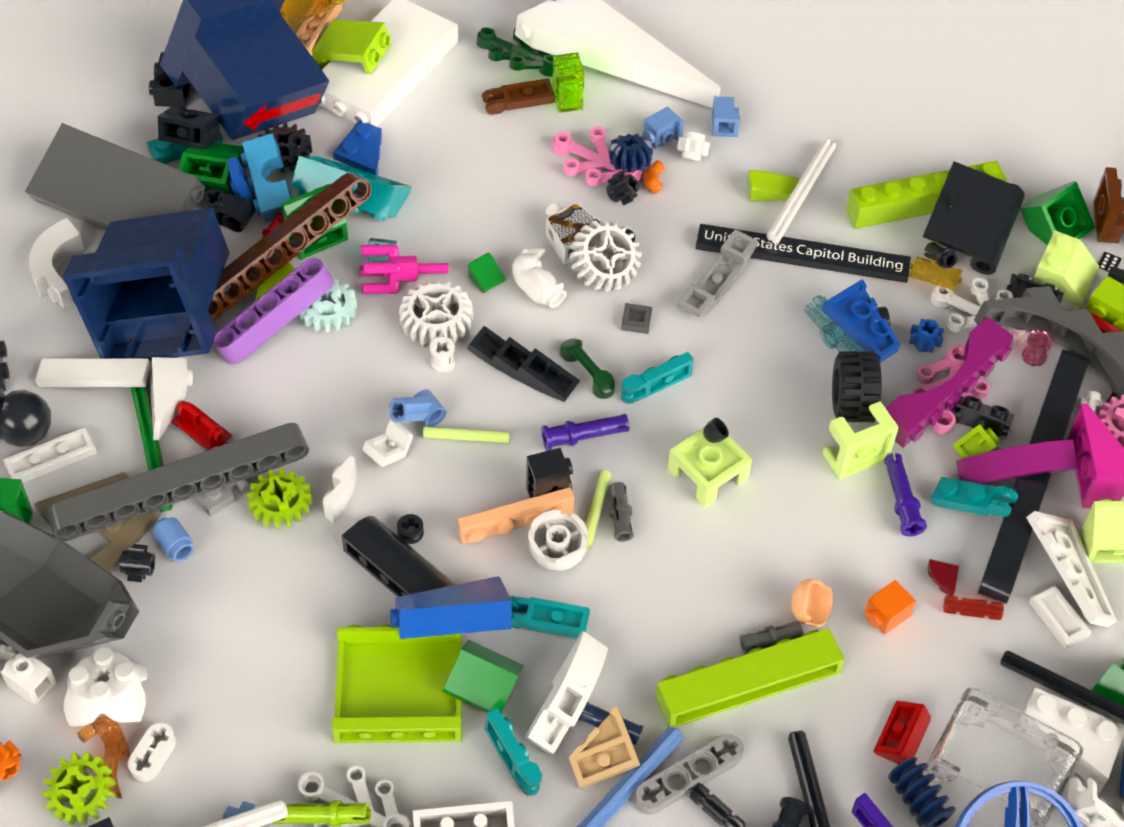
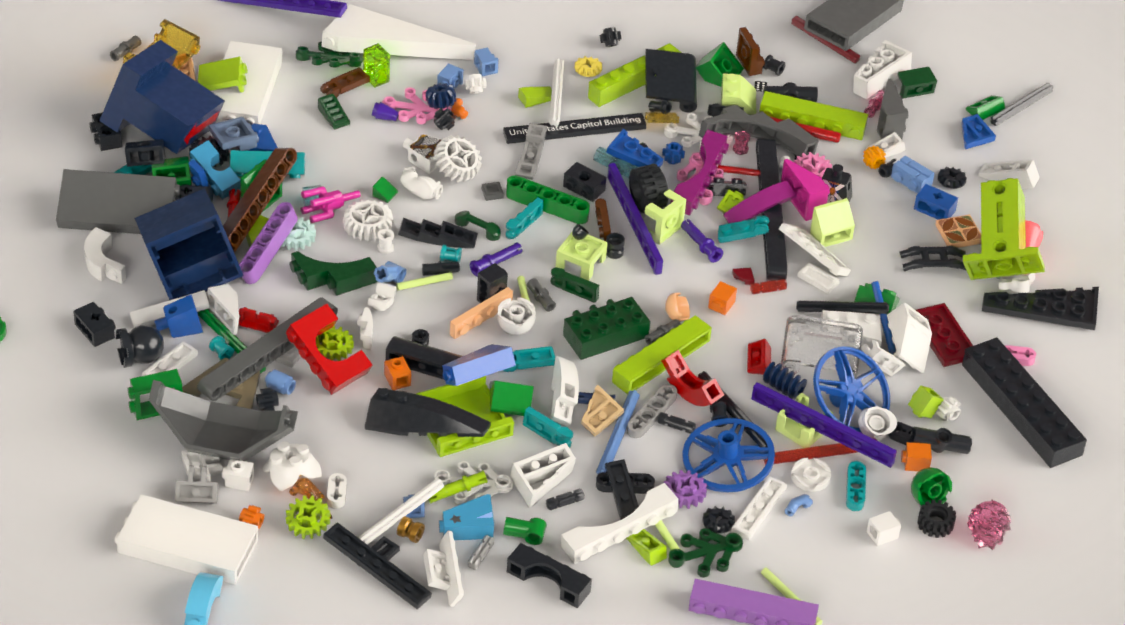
camera: 25 degrees left, 10 degrees down
(96, 392) = (180, 318): none -> blue torso
(127, 460) = (221, 348): none -> teal bush
(251, 553) = (333, 374): none -> arch
(320, 665) = (408, 412): none -> black wedge
(322, 132) = (234, 133): none -> sand blue plate
(343, 579) = (397, 373): none -> orange brick
(346, 391) = (337, 276): none -> dark green arch
(475, 120) = (328, 102): none -> dark green slope
(497, 421) = (440, 268): none -> black axle
(523, 403) = (450, 254): none -> teal bush
(547, 153) = (384, 112): none -> dark purple cone
(676, 511) = (575, 284): none -> dark green hinge
(686, 601) = (605, 327): none -> dark green piece
(709, 359) = (554, 201): none -> green beam
(767, 463) = (615, 245): none -> black wheel
(770, 417) = (602, 218): none -> reddish brown hinge
(772, 762) = (689, 386): none -> red arch
(773, 344) = (584, 181): none -> black brick
(818, 430) = (635, 219): none -> dark purple tile
(858, 166) = (582, 68): none -> light yellow gear
(918, 127) = (610, 37): none -> black gear
(1015, 391) = (737, 170): none -> red bar

